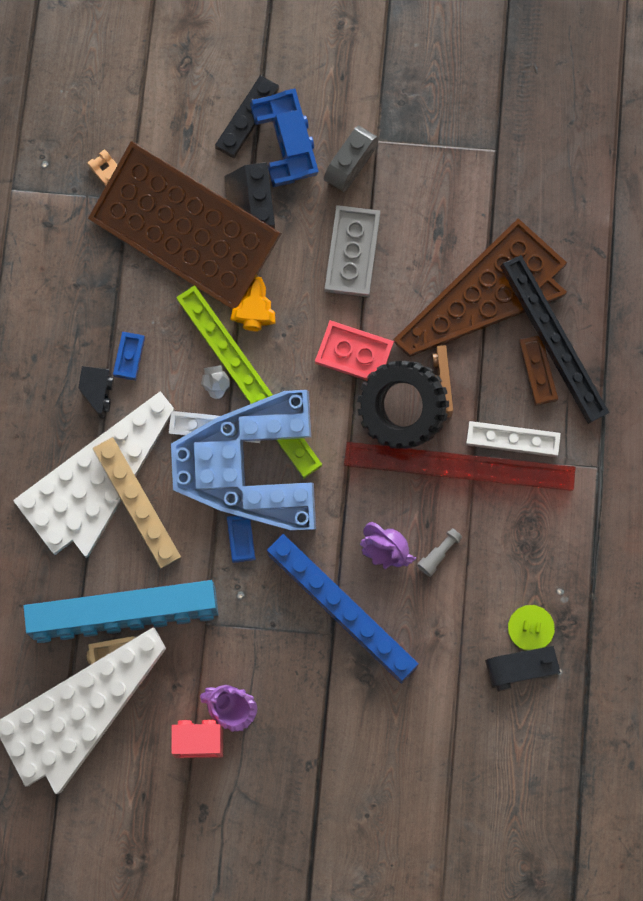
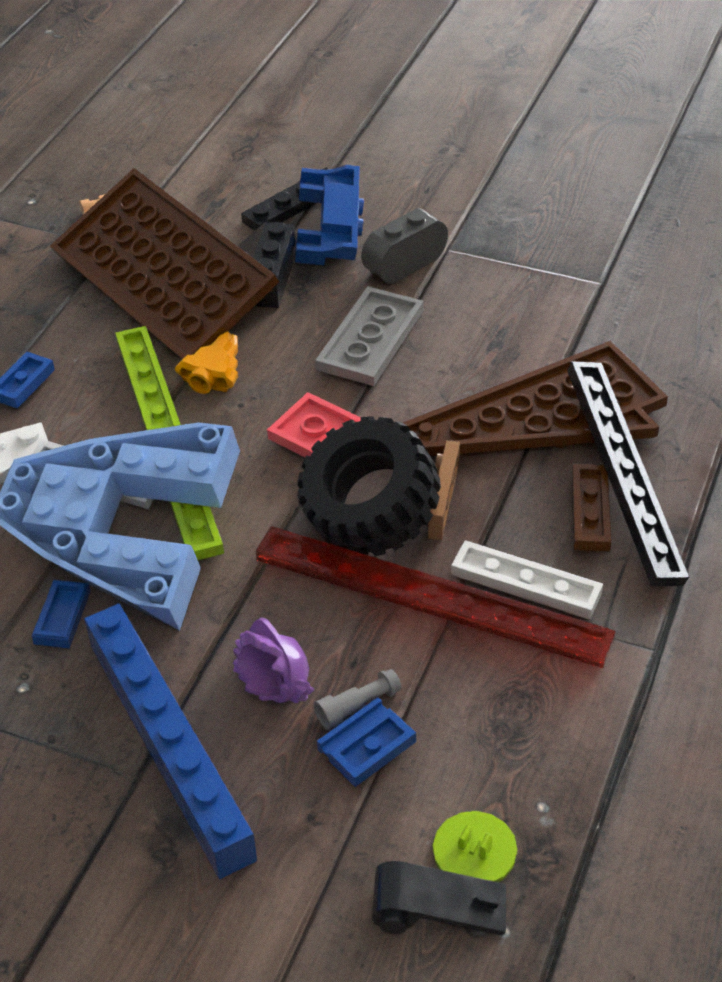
camera: 15 degrees right, 30 degrees down
(215, 381) = (119, 418): light grey rock -> none
(454, 580) = (366, 742): none -> blue plate

